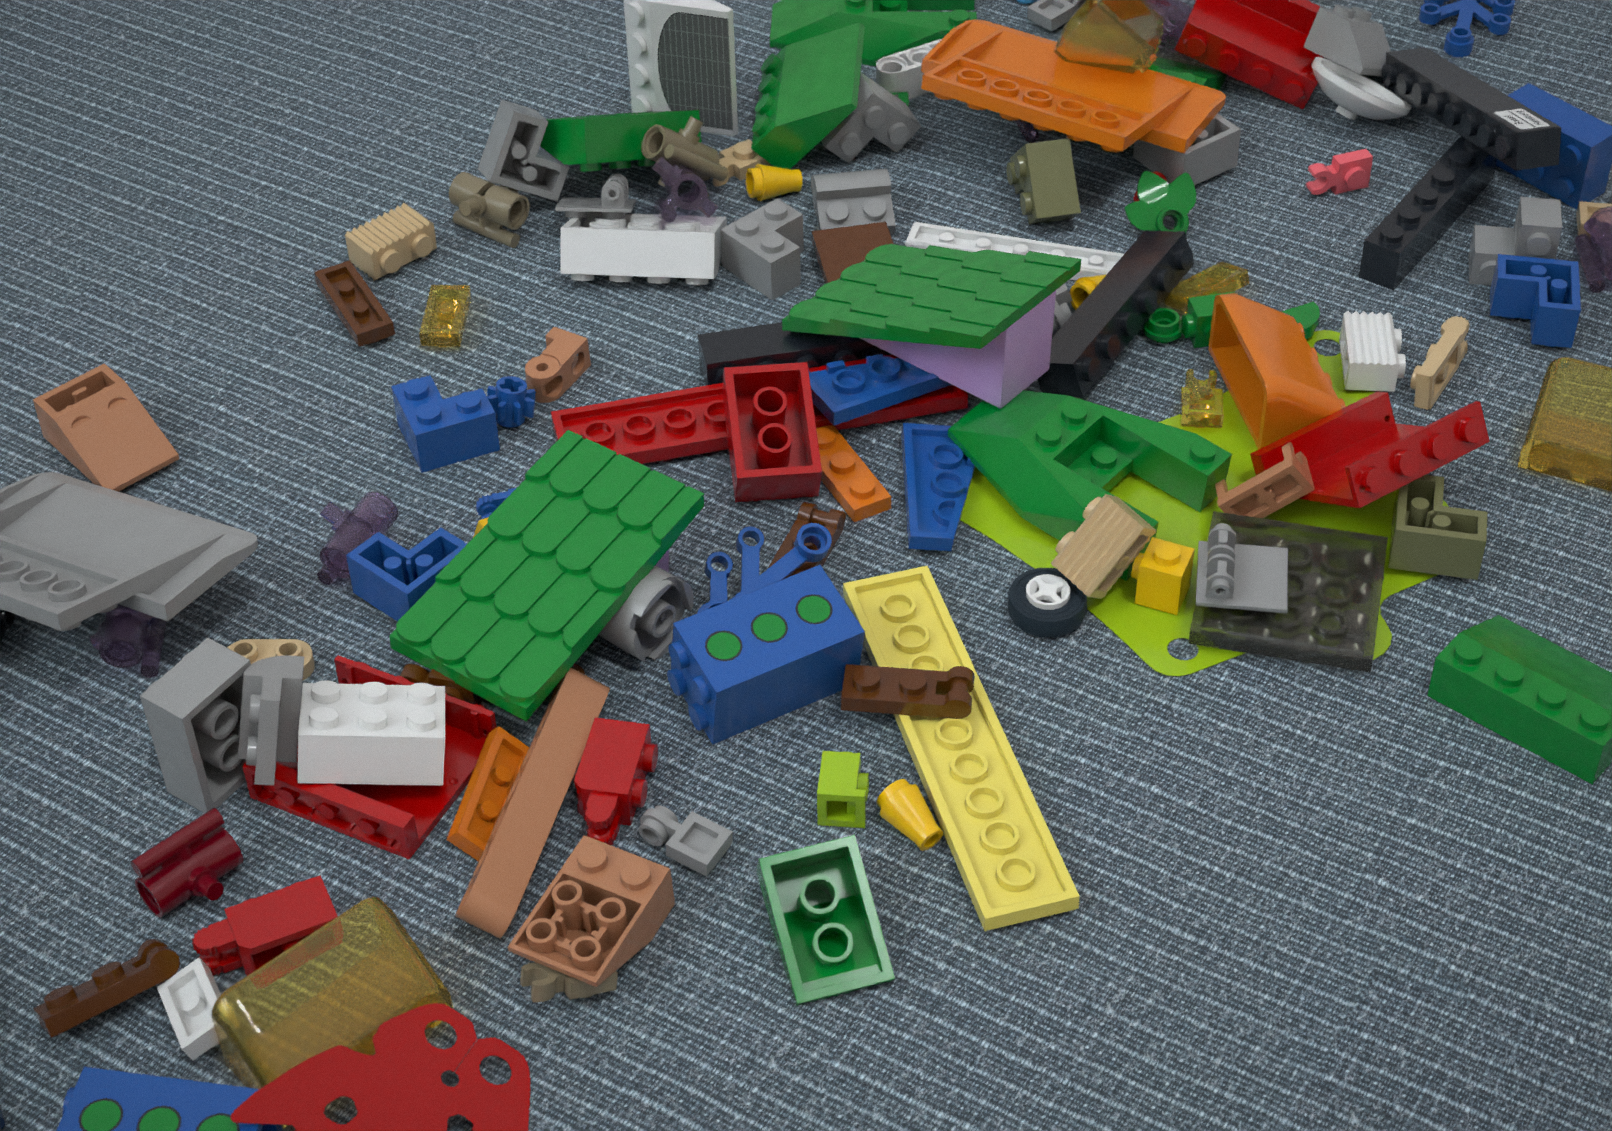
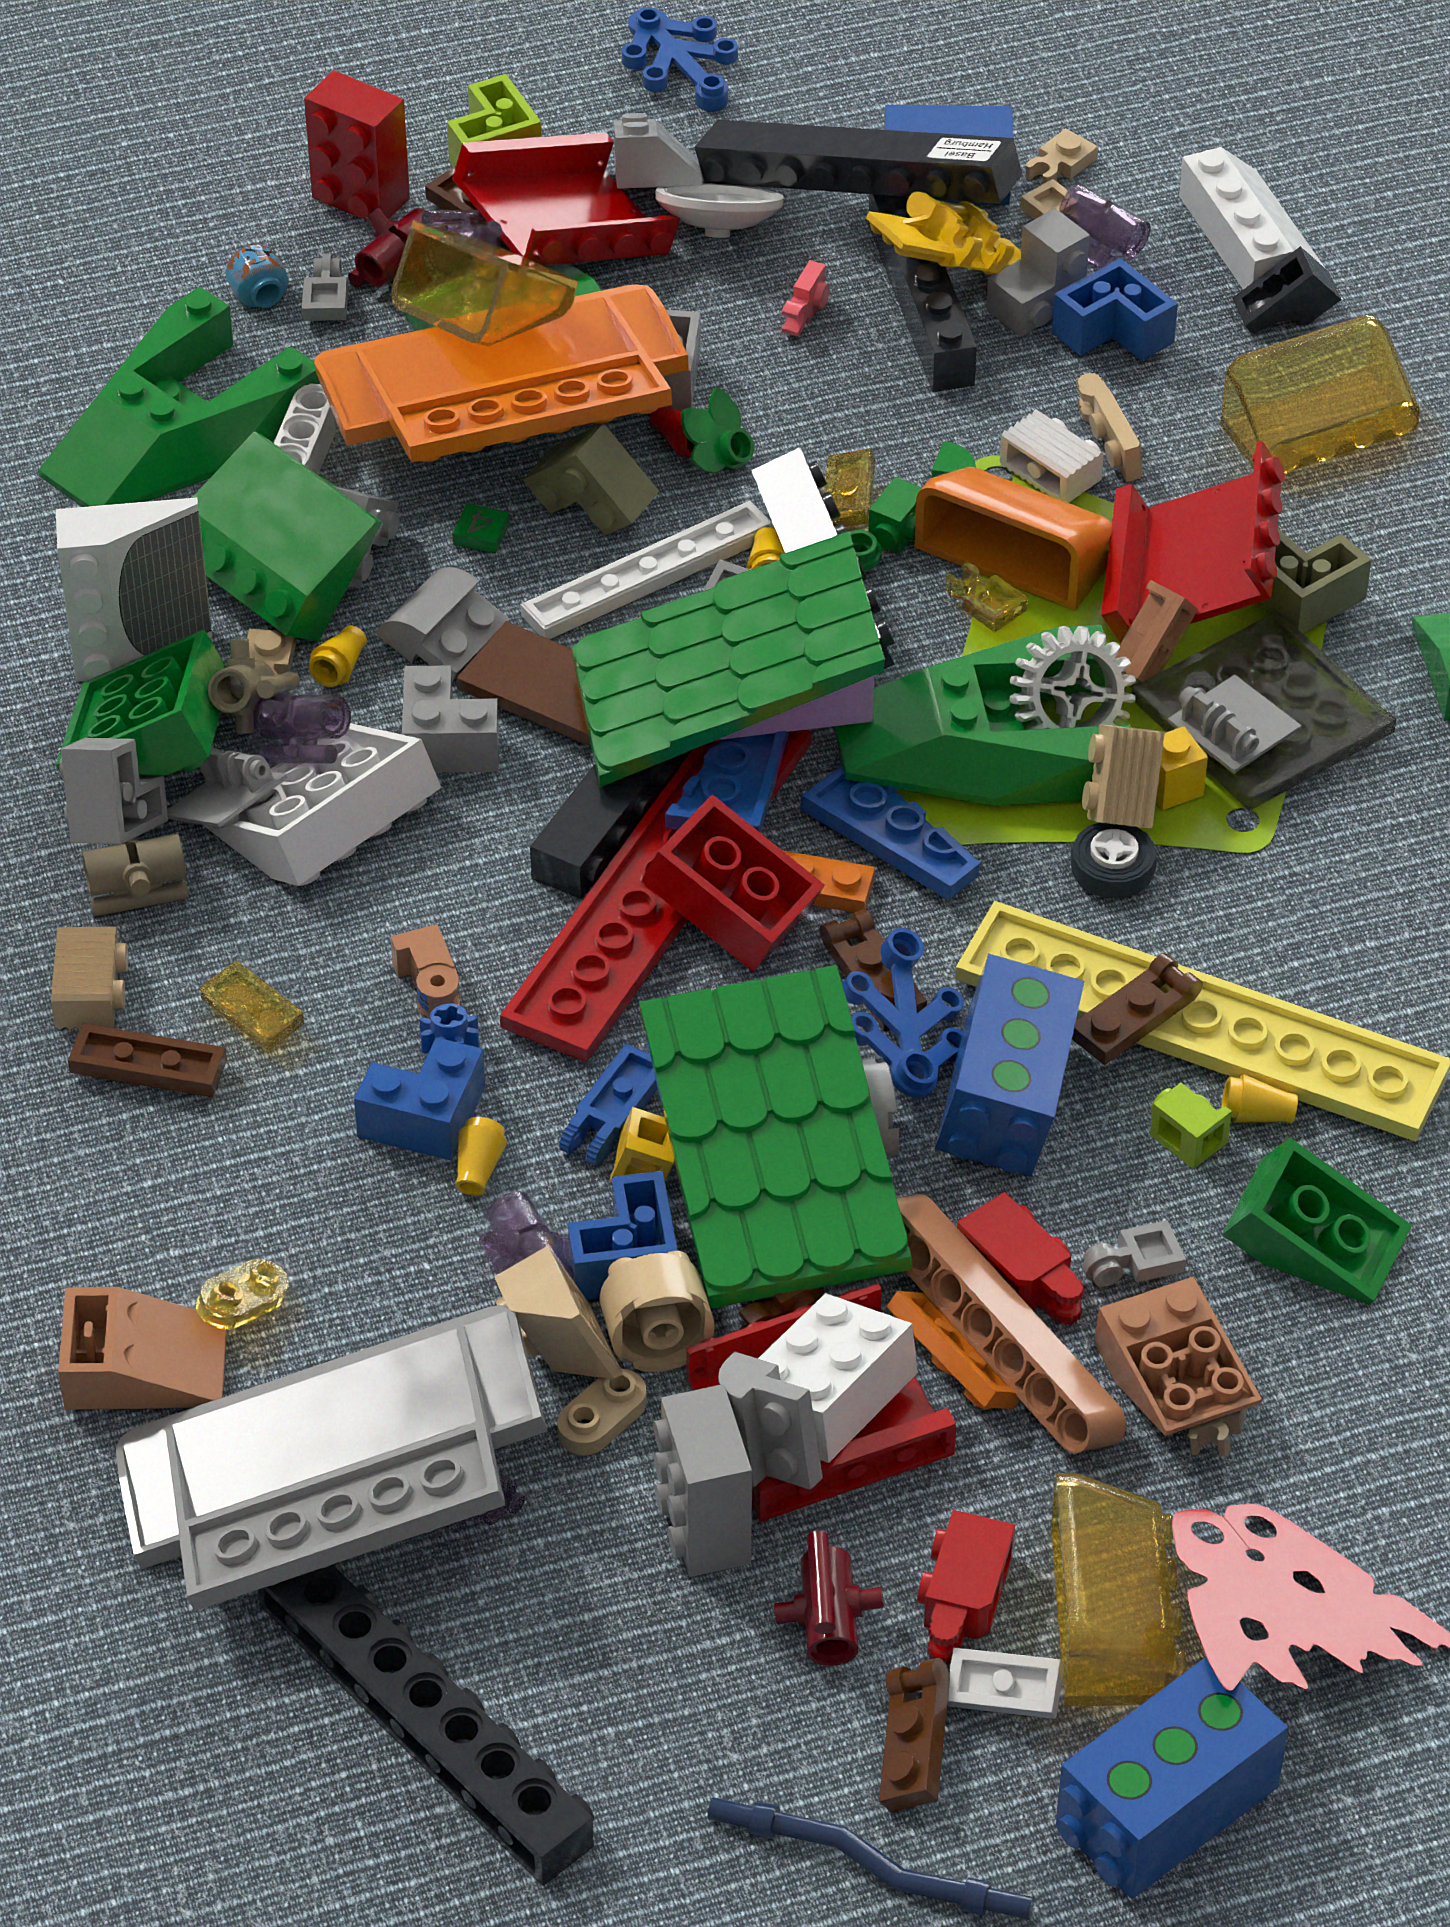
camera: 50 degrees left, 5 degrees up
(200, 446) = (242, 1294): none -> clear yellow plate
(298, 575) = (556, 1317): none -> tan slope
(357, 619) = (655, 1310): none -> tan brick
(425, 475) = (479, 1151): none -> yellow cone
(958, 173) = (481, 528): none -> green tile
(1177, 453) = (1073, 671): none -> white gear
(1450, 170) = (946, 234): none -> yellow piece

